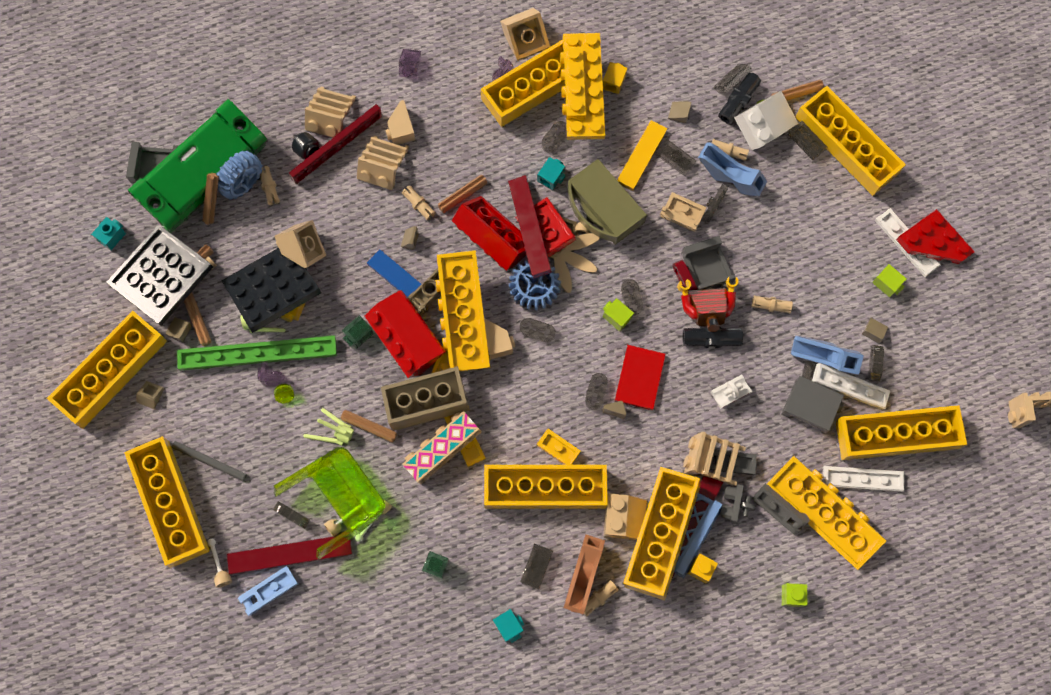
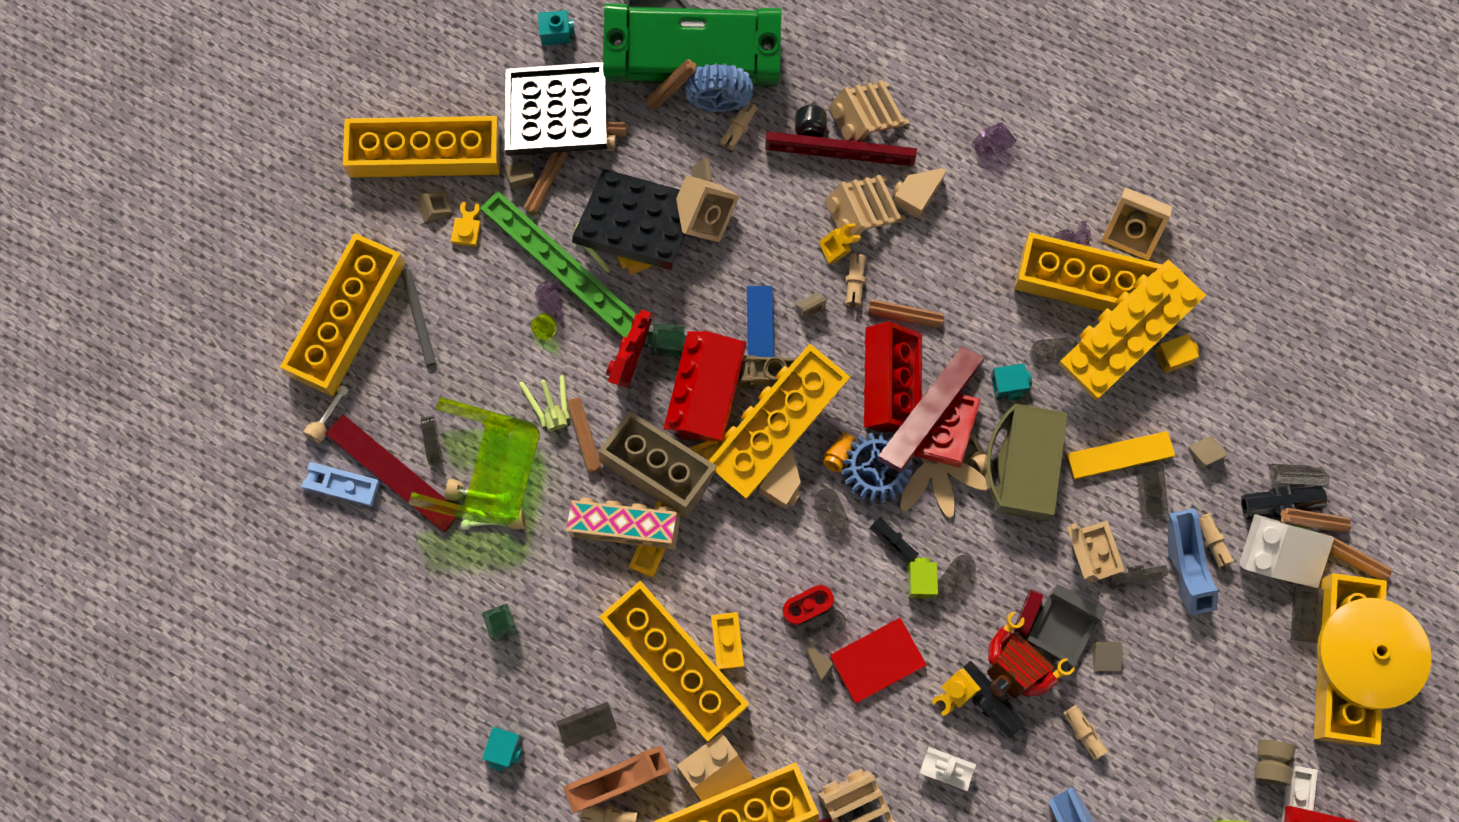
camera: 50 degrees right, 0 degrees up
(181, 387) = (466, 229): none -> yellow plate
(276, 227) = (702, 170): none -> dark tan slope
(344, 354) = (630, 349): none -> red plate
(388, 193) = (836, 243): none -> yellow plate
(508, 298) = (837, 453): none -> light orange cone
(576, 387) = (806, 603): none -> red plate
(582, 311) = (893, 541): none -> black pin
(694, 348) = (958, 690): none -> yellow plate
(742, 257) = (1107, 656): none -> dark tan slope
(764, 91) = (1315, 520): none -> medium nougat axle
(858, 125) = (1351, 660): none -> yellow dish
(869, 224) = (1275, 762): none -> dark tan wheel

